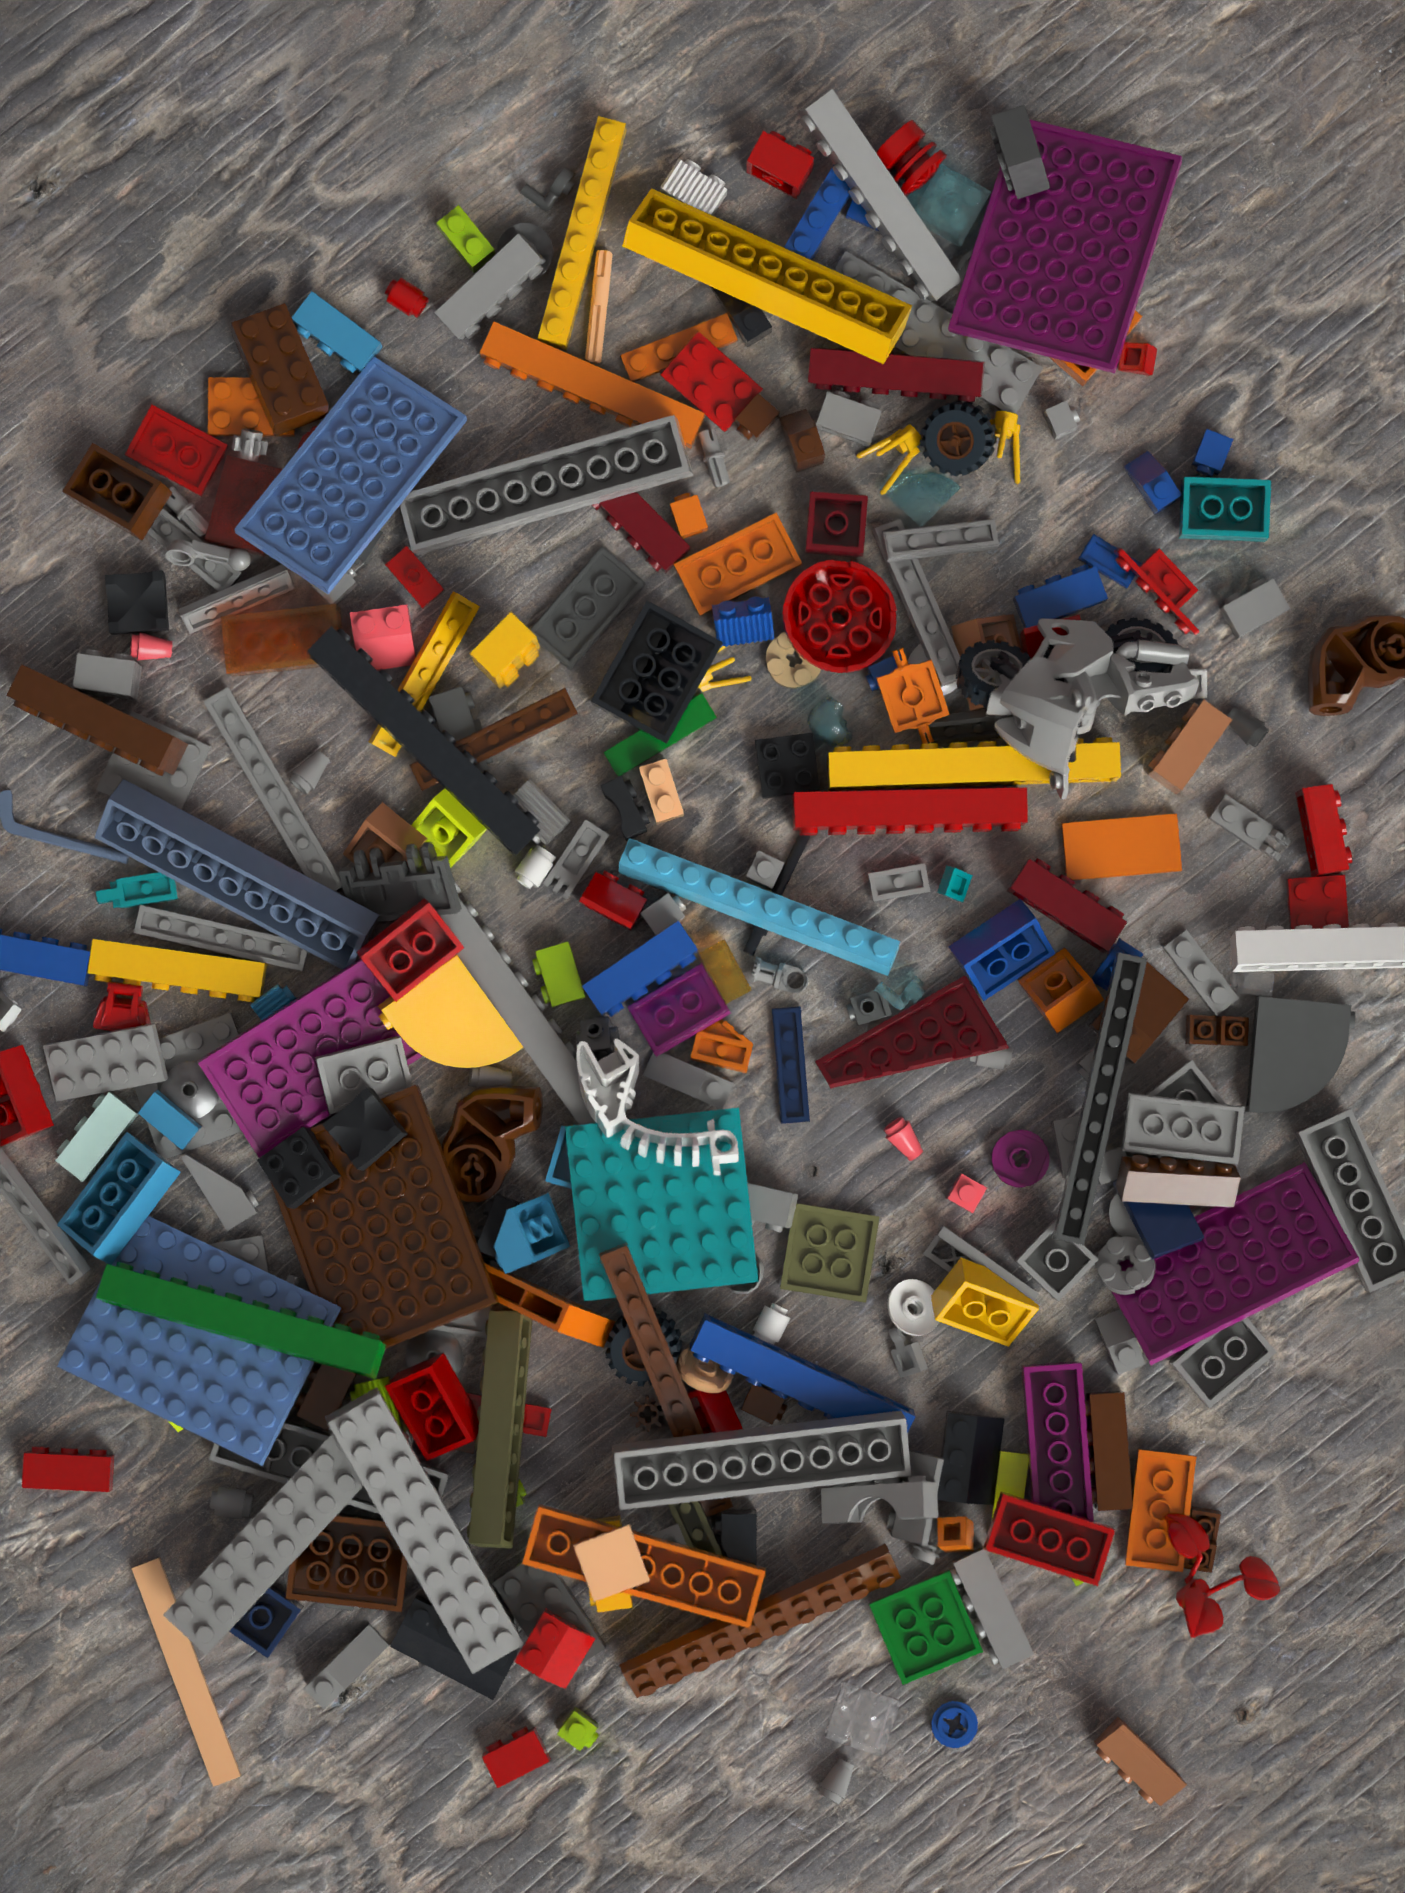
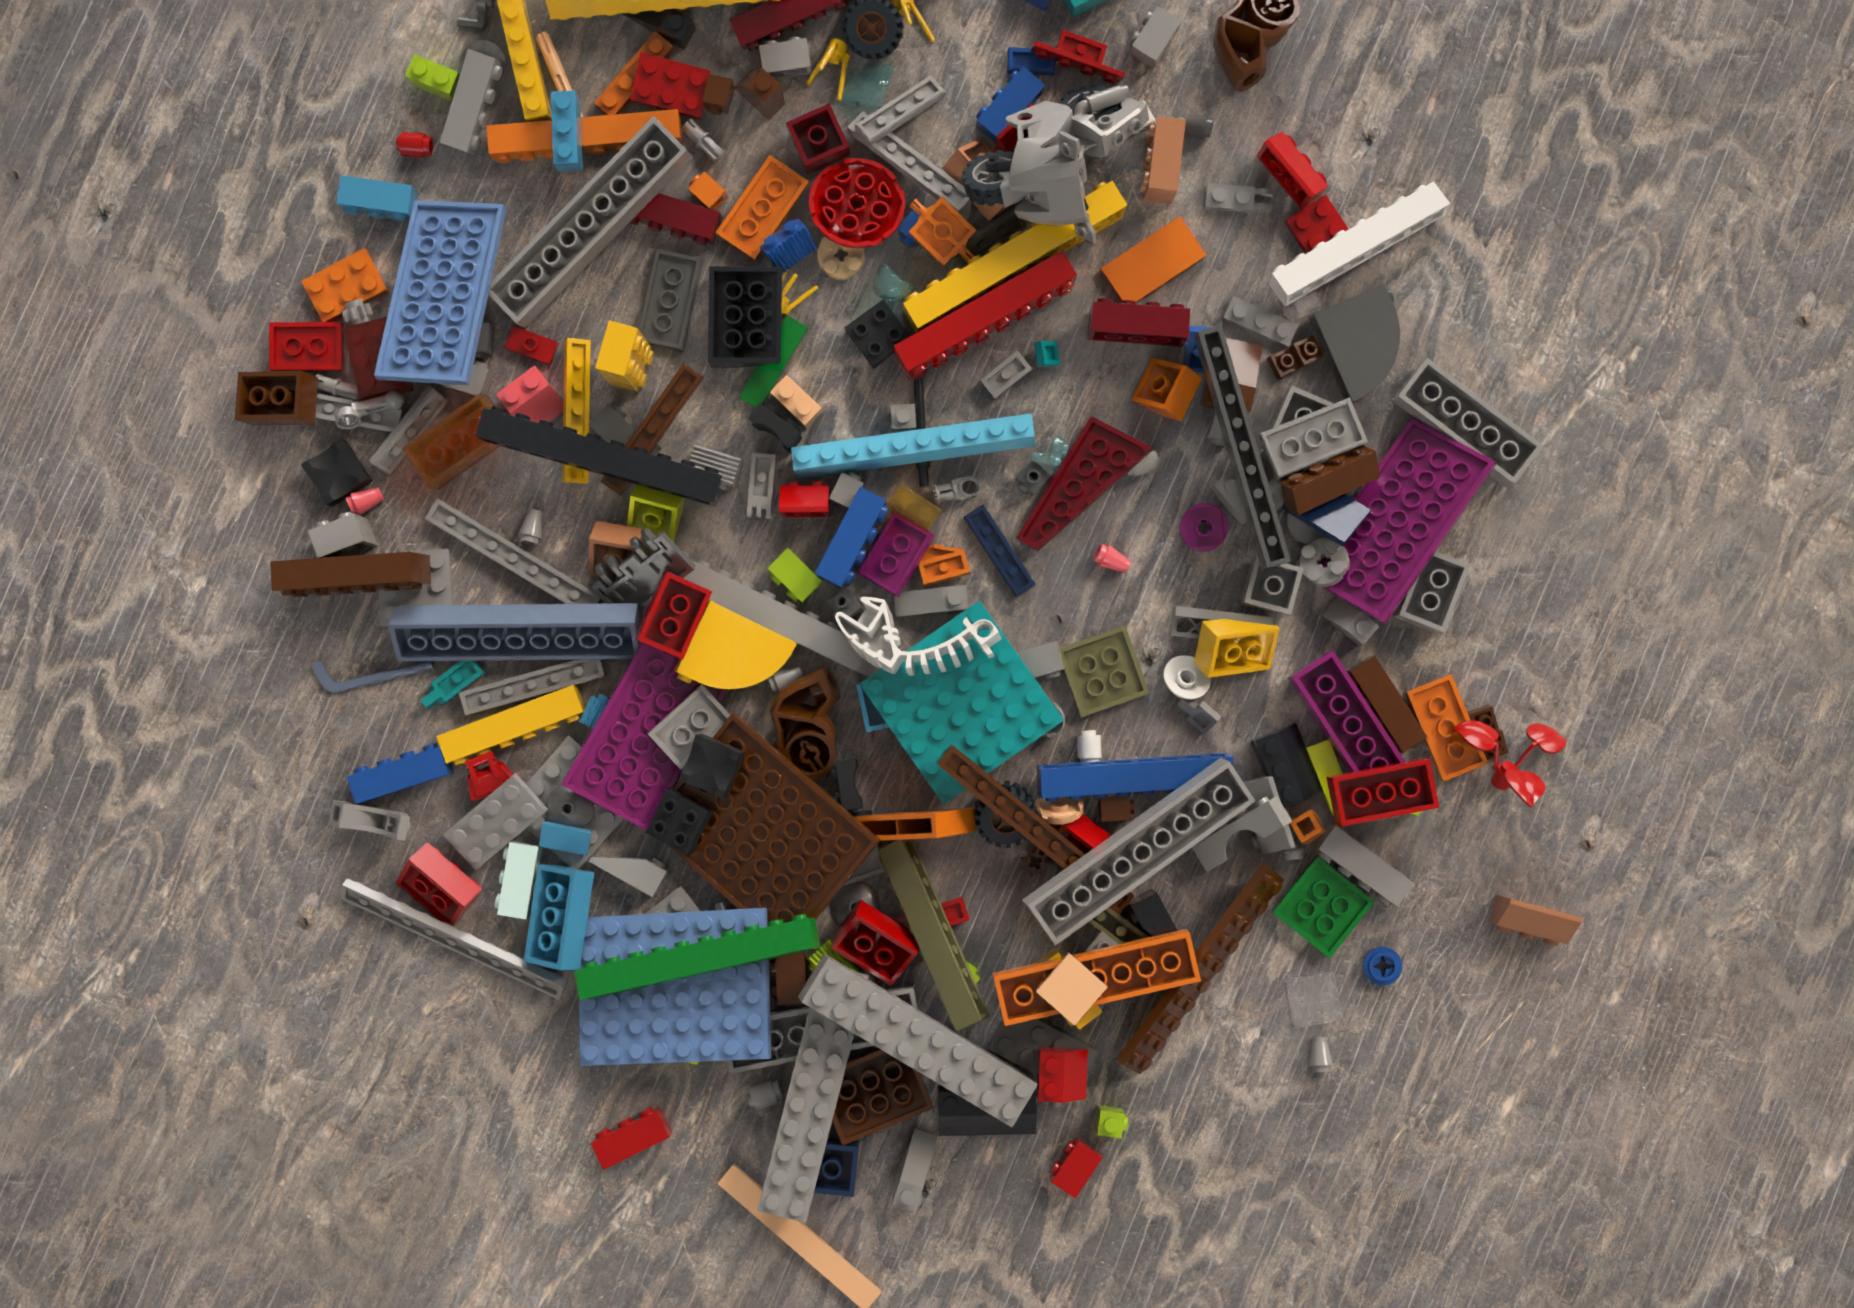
camera: 30 degrees left, 0 degrees up
(279, 369) = (348, 244): reddish brown brick -> none
(529, 1234) = (876, 777): dark azure slope -> none
(534, 867) = (734, 507): white brick -> none
(574, 377) = (566, 131): none -> dark azure brick
(966, 1193) = (1179, 573): coral brick -> none
(1002, 949) = (1107, 382): blue slope -> none

